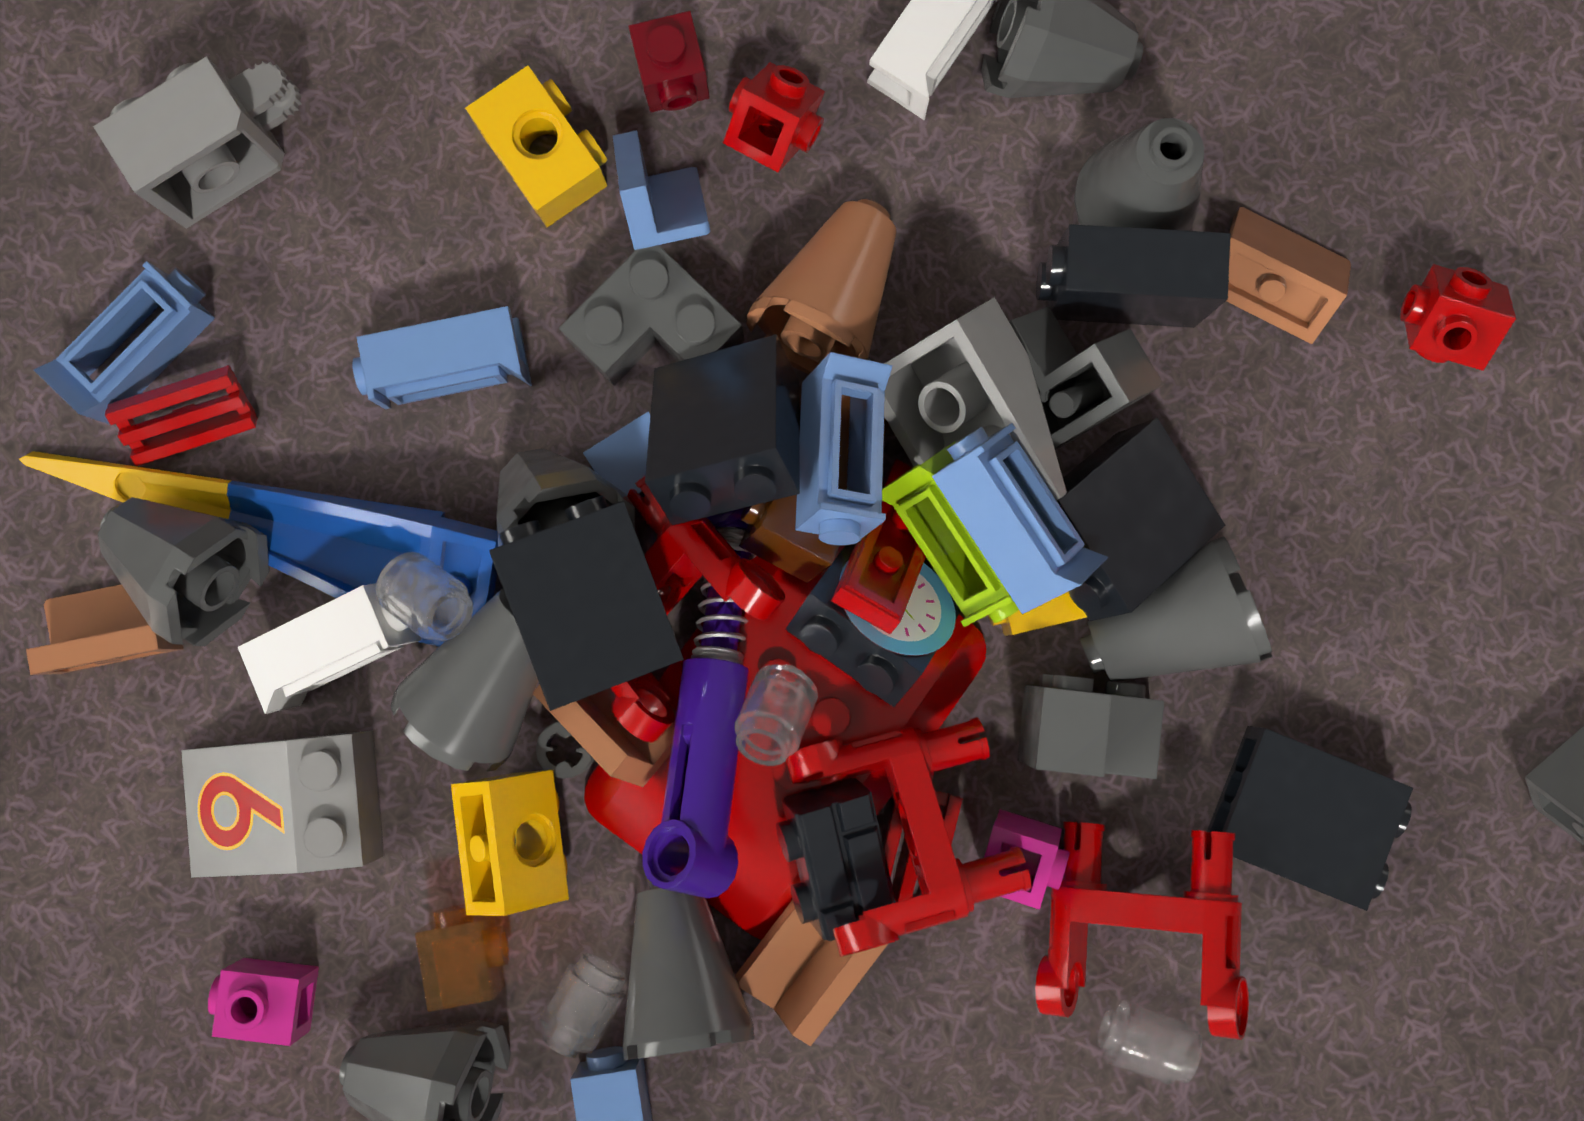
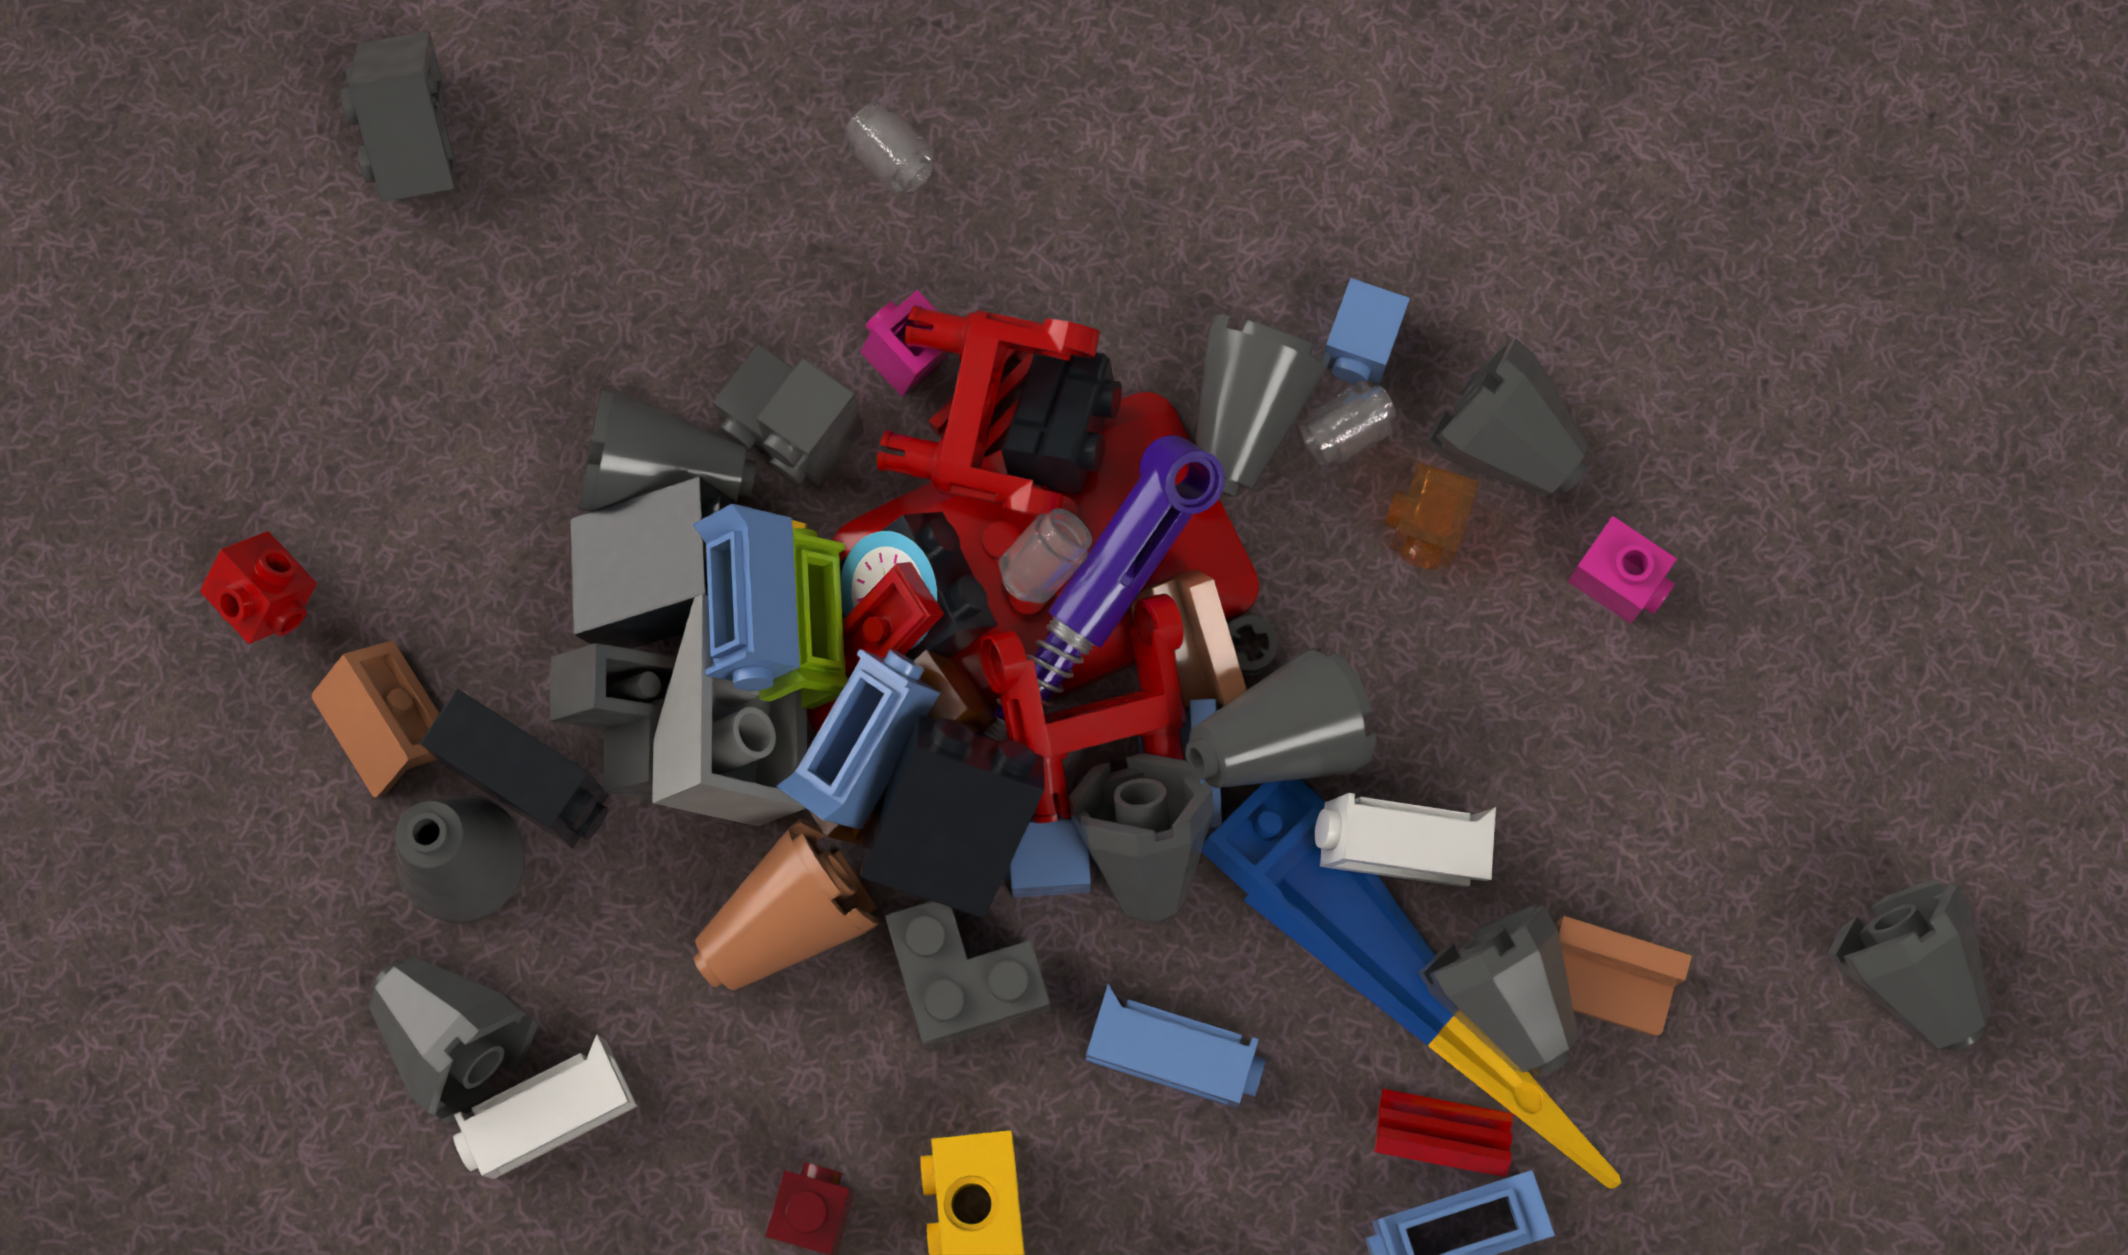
camera: 155 degrees left, 10 degrees down
(283, 806) = (1529, 731): light grey slope -> none
(424, 597) = (1294, 816): clear brick -> none
(495, 871) = (1337, 585): yellow brick -> none
(584, 601) = (1152, 719): black brick -> none
(661, 205) = (891, 1080): medium blue panel -> none
(774, 116) = (744, 1103): red brick -> none
(802, 975) = (1148, 349): nougat panel -> none
(1204, 910) = (783, 218): red connector -> none
(1311, 816) = (650, 252): black brick -> none

